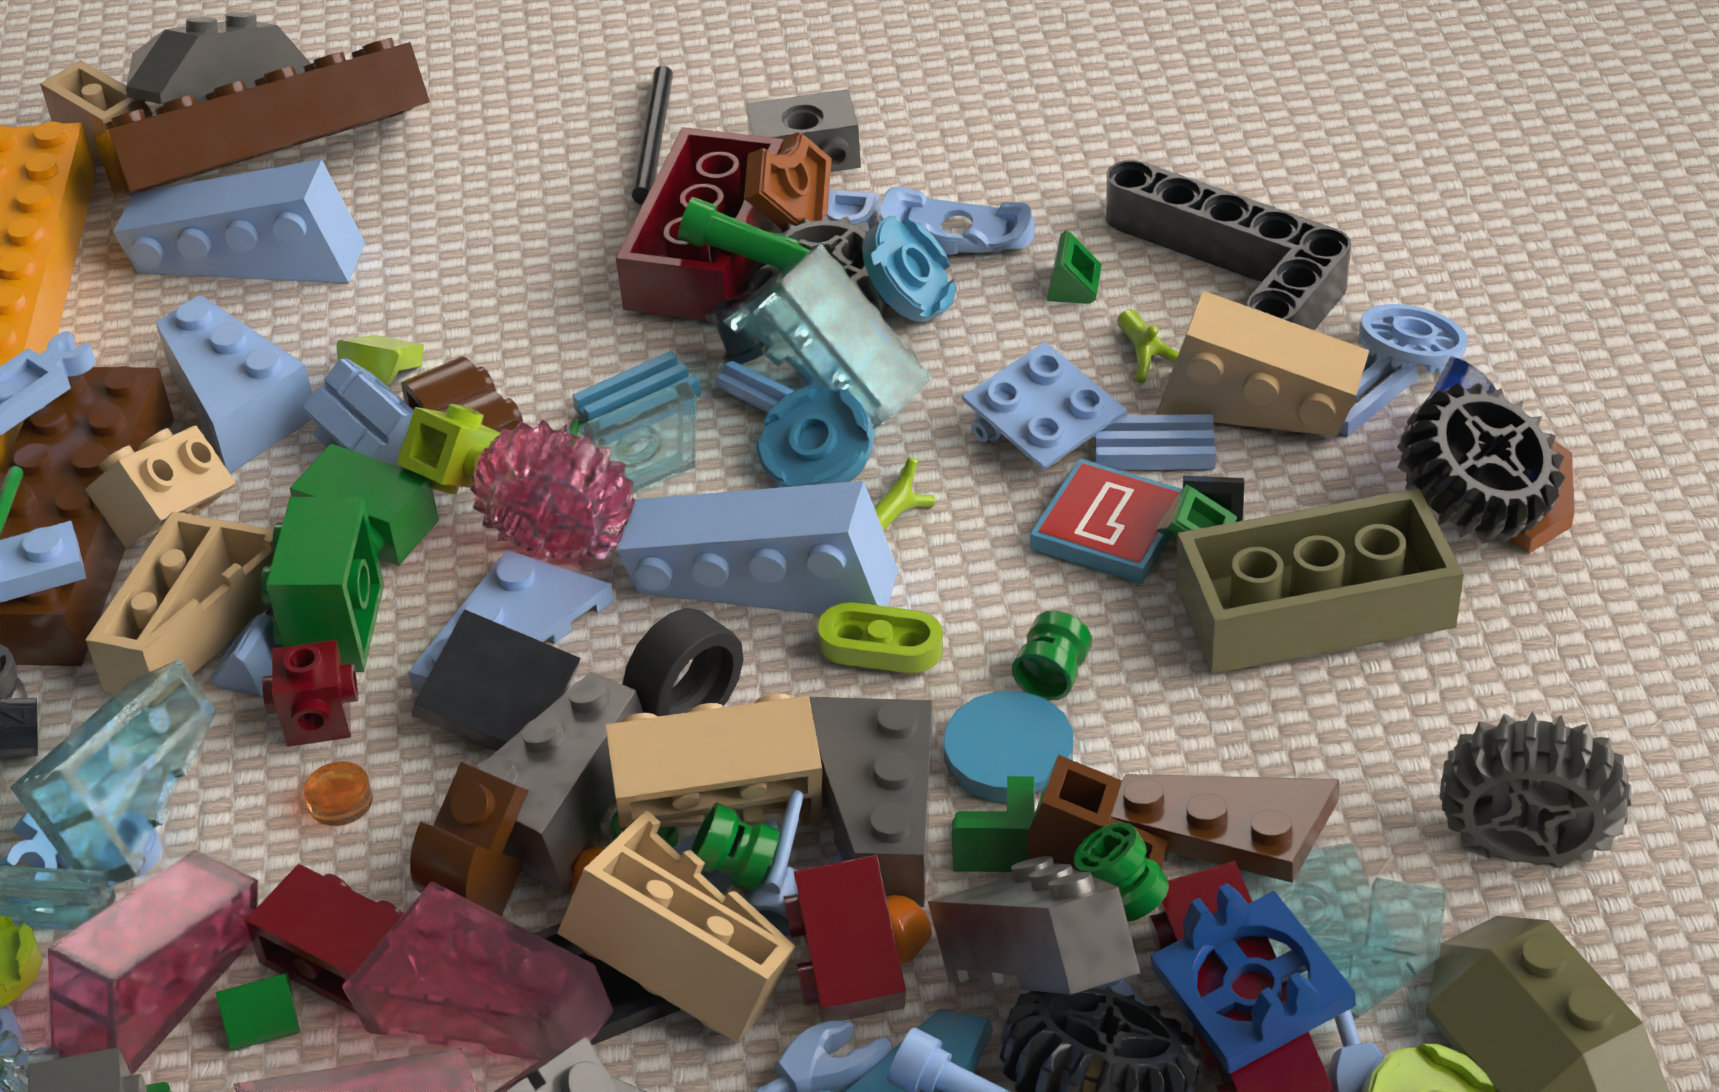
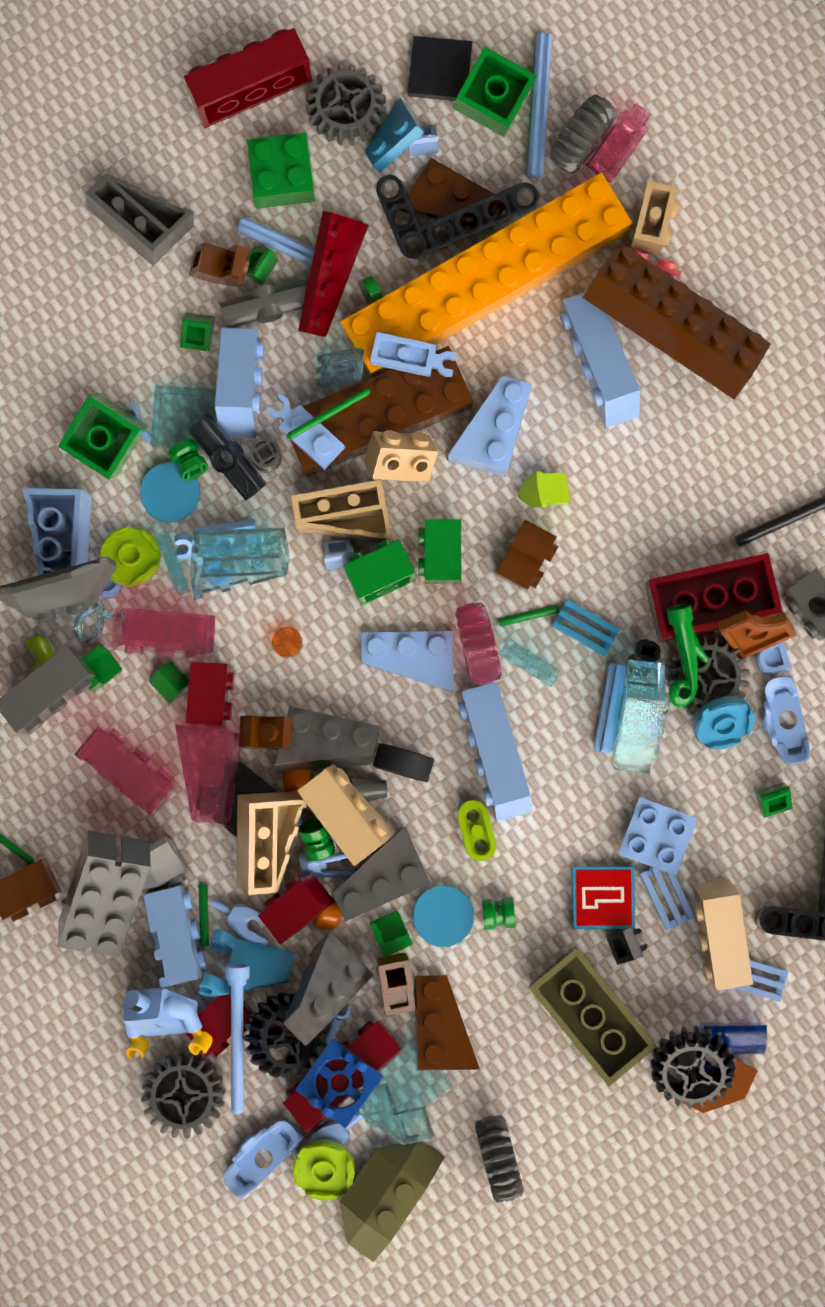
camera: 65 degrees right, 40 degrees up
(209, 56) = (708, 256): dark grey wedge -> none
(311, 692) = (331, 611): dark red brick -> none
(359, 413) = (495, 518): light blue brick -> none
(445, 446) = (480, 580): lime brick -> none
(492, 682) = (366, 679): black tile -> none
(815, 438) = (585, 737): dark azure tile -> none
(901, 496) = (572, 792): lime bar -> none
(1119, 858) = (366, 1014): green wheel -> none
(1144, 341) = (738, 859): lime bar -> none
(1191, 512) = (604, 946): green slope -> none
(1411, 336) = (796, 992): light blue wheel -> none

